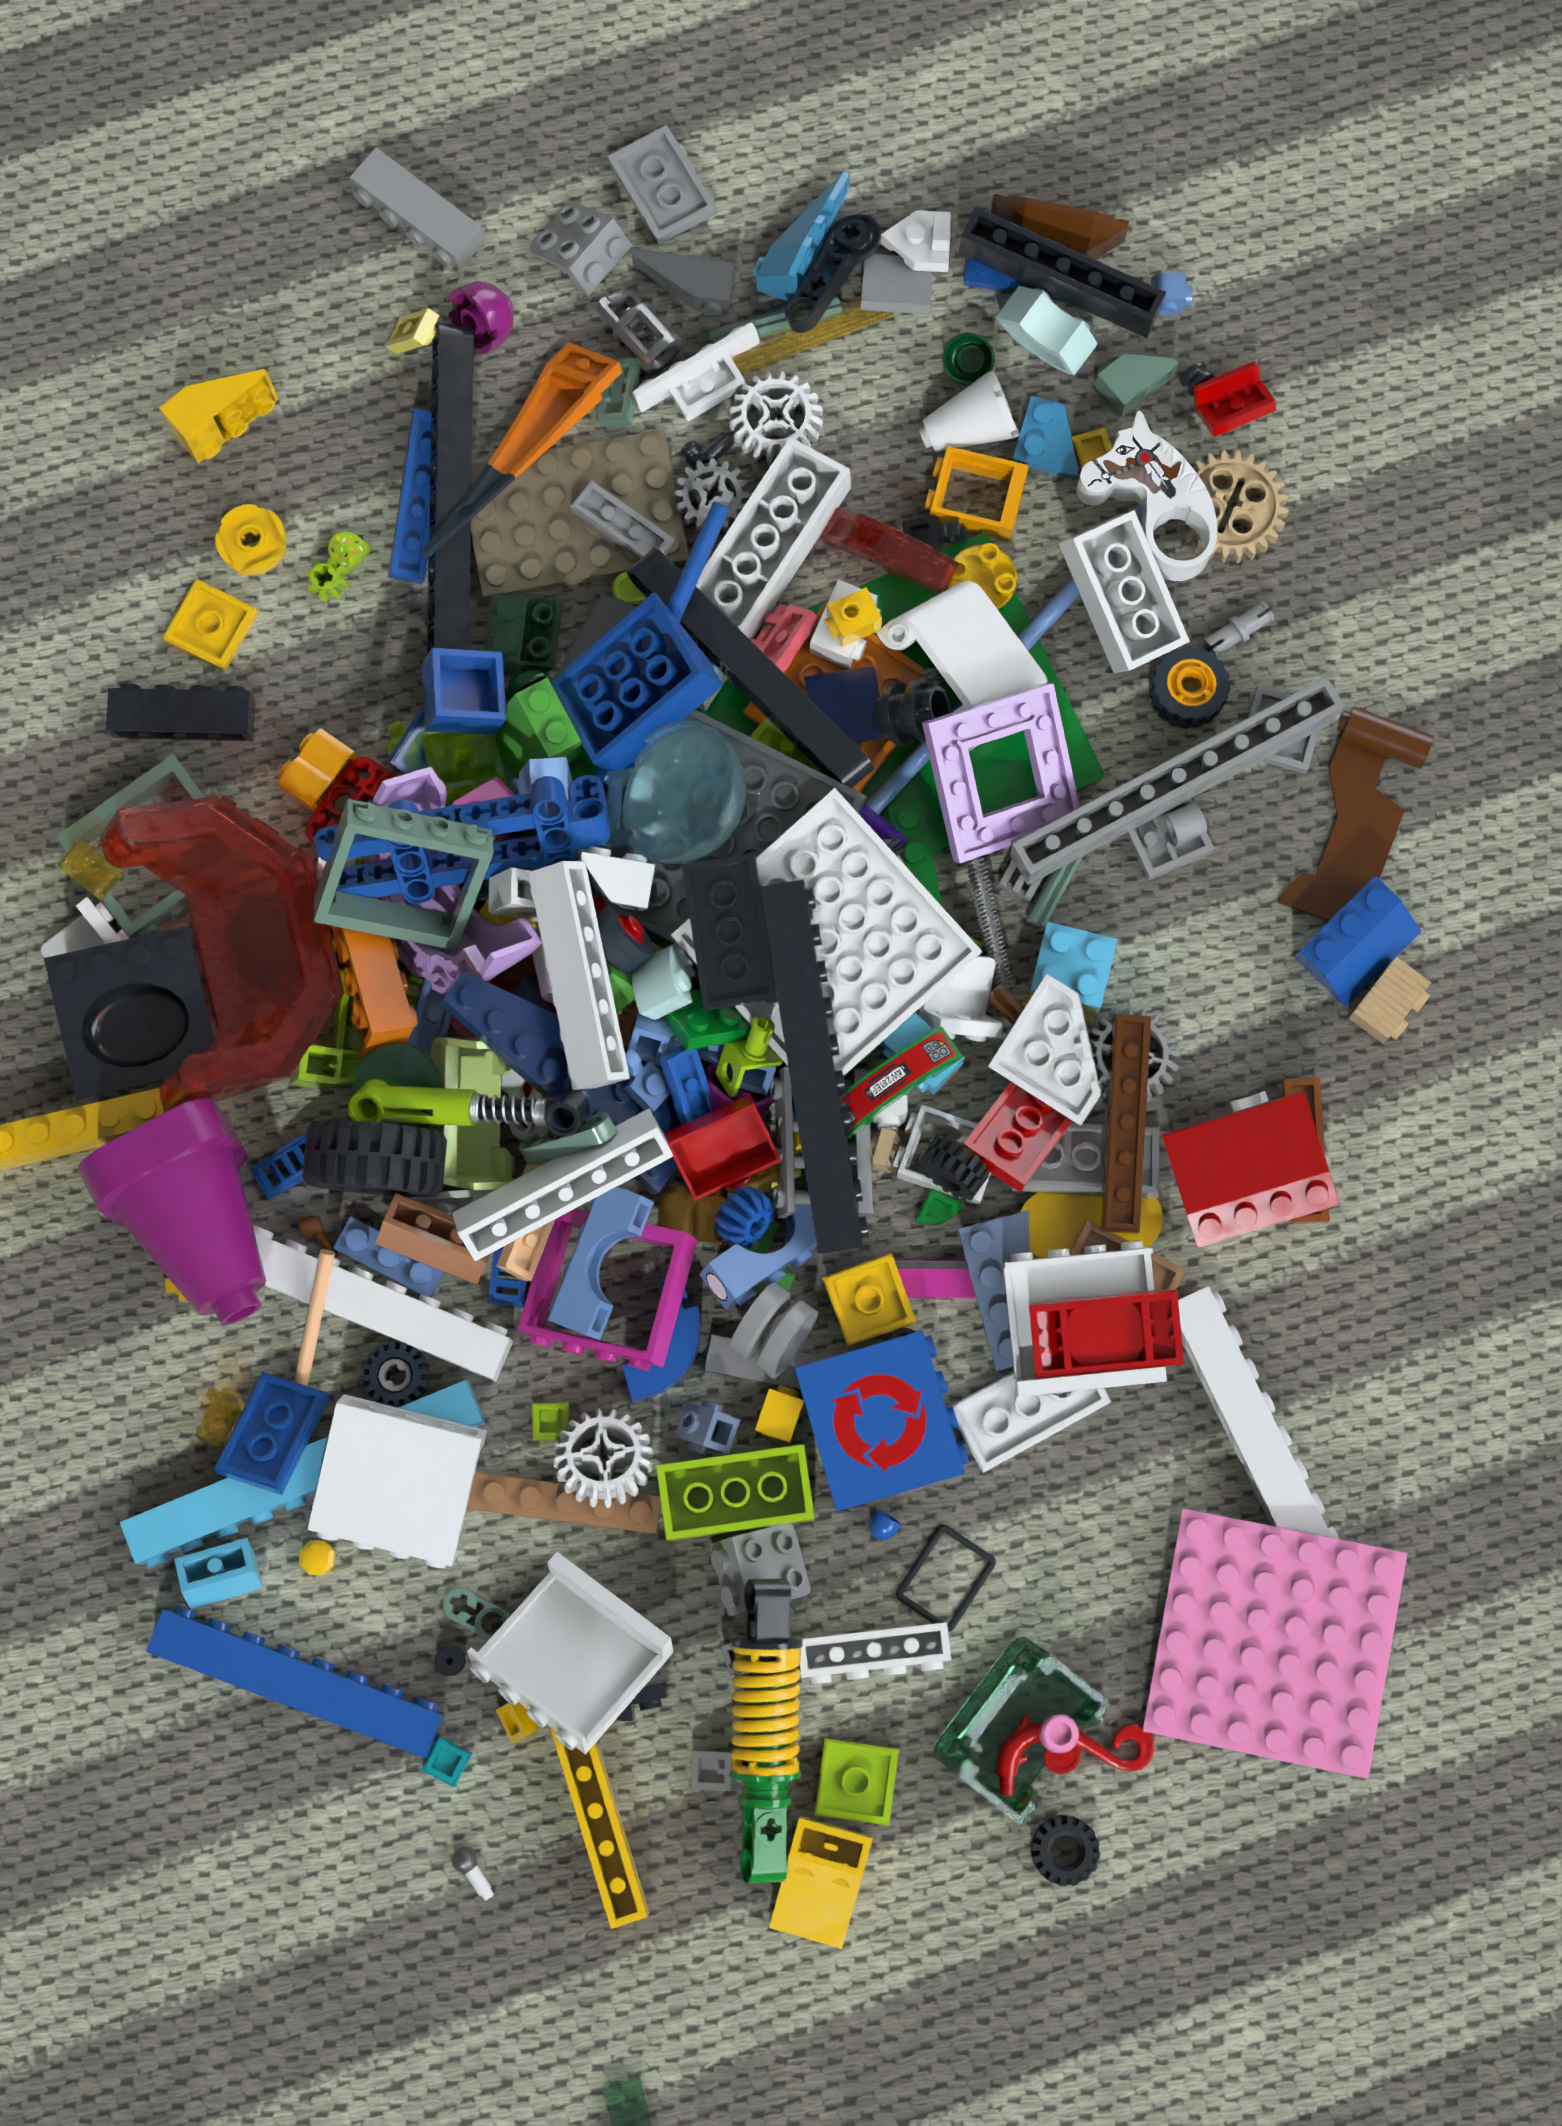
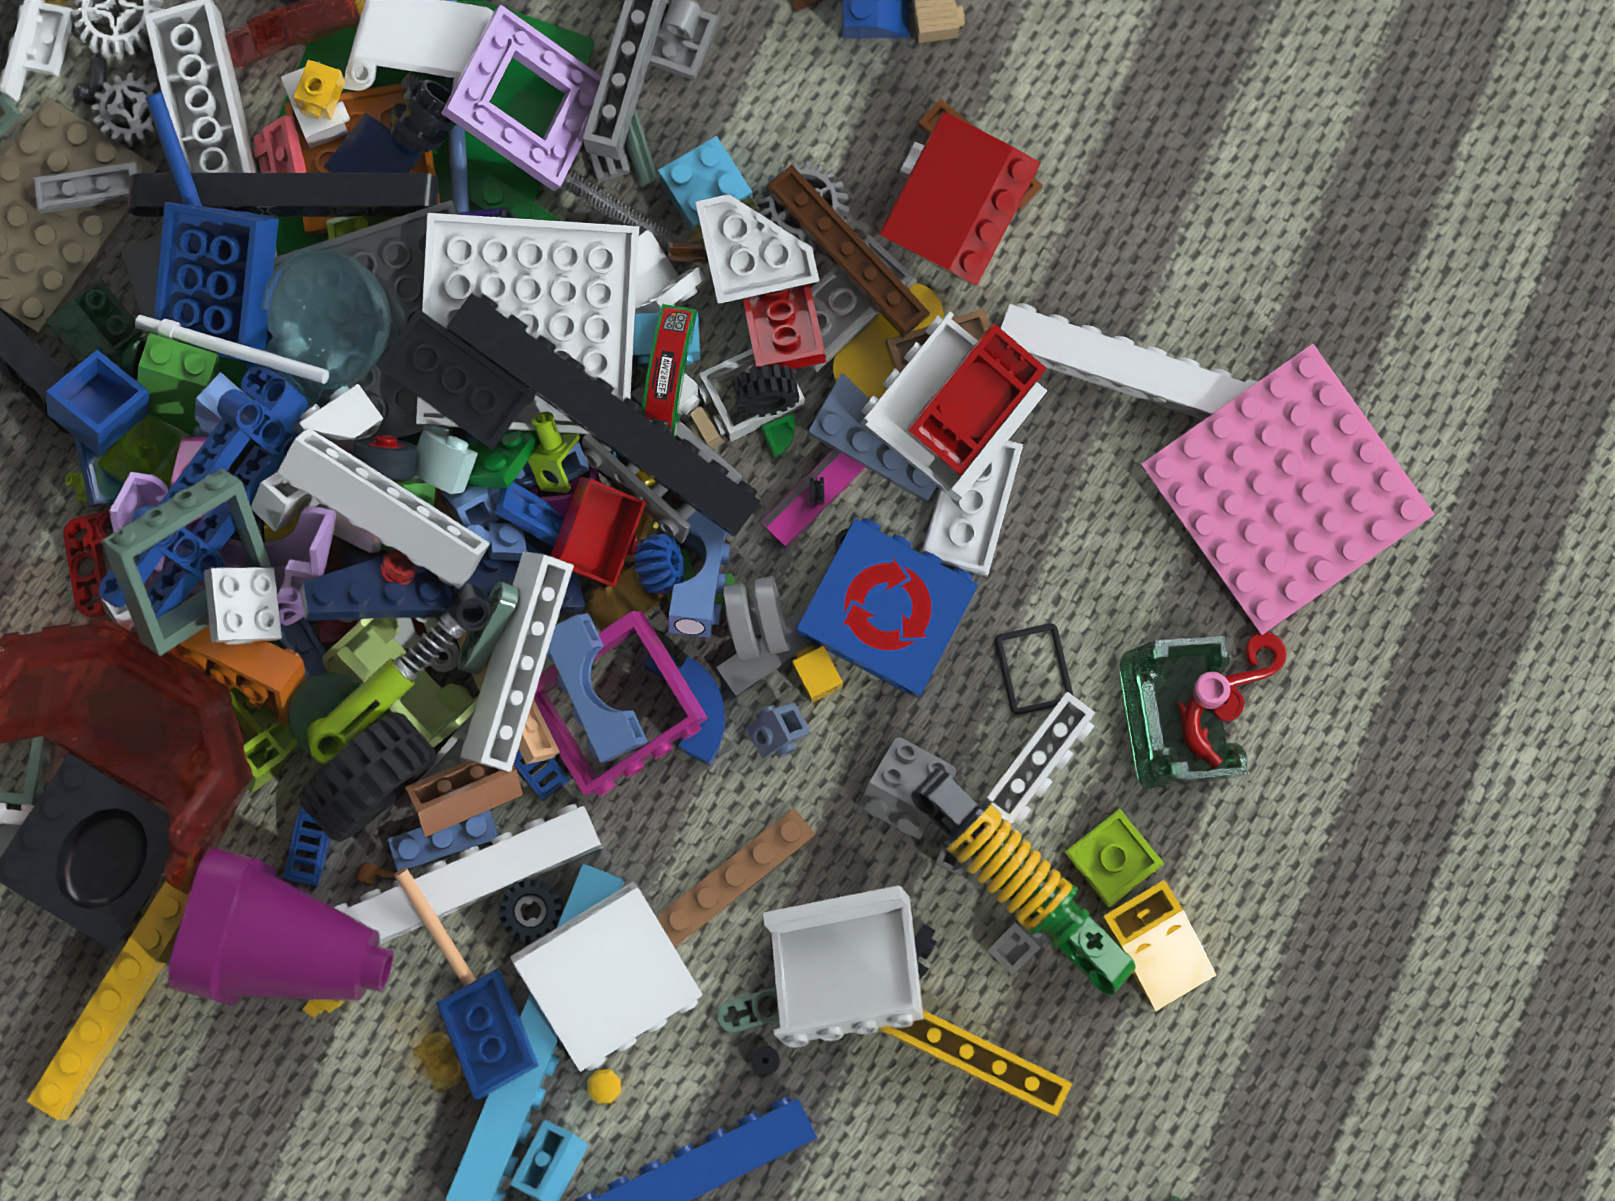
camera: 50 degrees left, 0 degrees up
(315, 769) = (43, 564): light orange brick -> none
(409, 943) = (242, 605): none -> white plate
(447, 1761) = (832, 1127): teal tile -> none
(465, 1862) = (914, 1179): piece -> none
(516, 1721) = (852, 1051): yellow tile -> none
(545, 1029) = (398, 568): none -> clear red tile
(549, 1420) = (667, 834): lime tile -> none
(567, 693) = (173, 330): none -> white bar
(617, 1454) = (716, 844): white gear -> none
(626, 591) = (137, 228): lime tile -> none
(735, 1493) = (841, 752): lime brick -> none
(869, 1300) = (797, 538): yellow tile -> none
(883, 1525) = (959, 676): blue hinge -> none
(919, 1279) = (816, 490): none -> black piece
(1088, 1855) = (1307, 747): black tyre -> none

